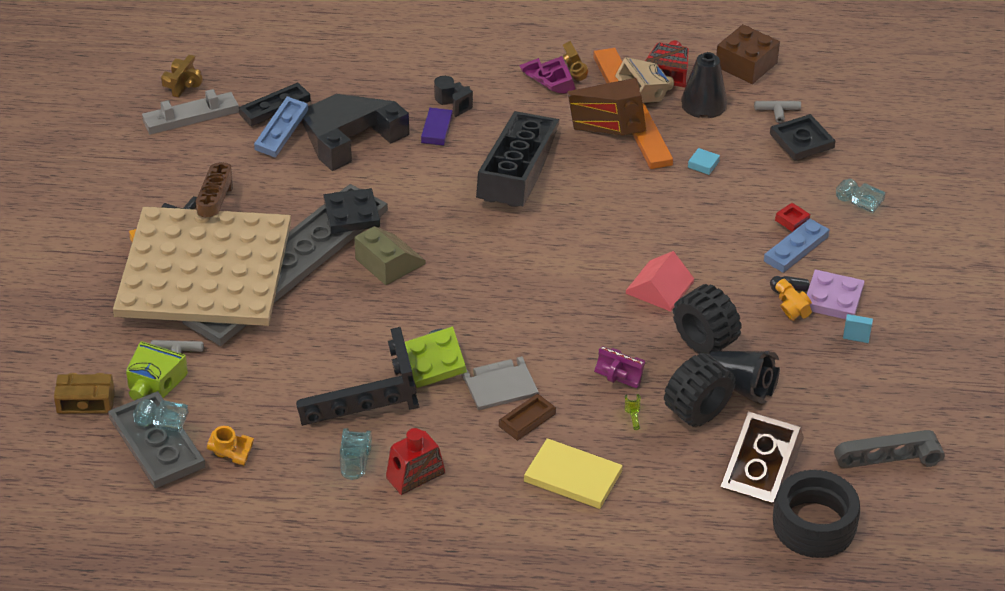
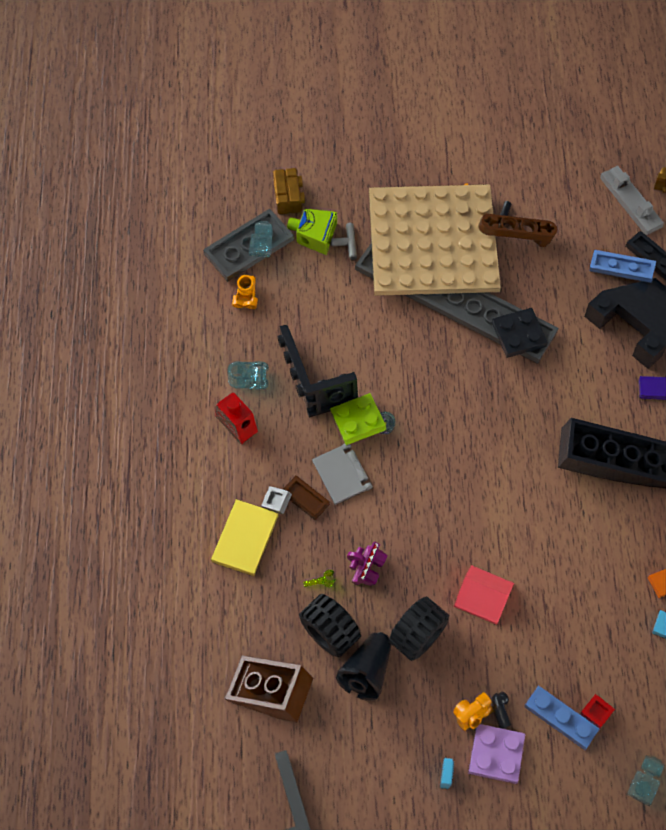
camera: 85 degrees right, 20 degrees up
(385, 255) = (478, 369): olive slope -> none
(531, 436) = (276, 500): none -> light grey plate
(812, 538) = (193, 705): black tyre -> none

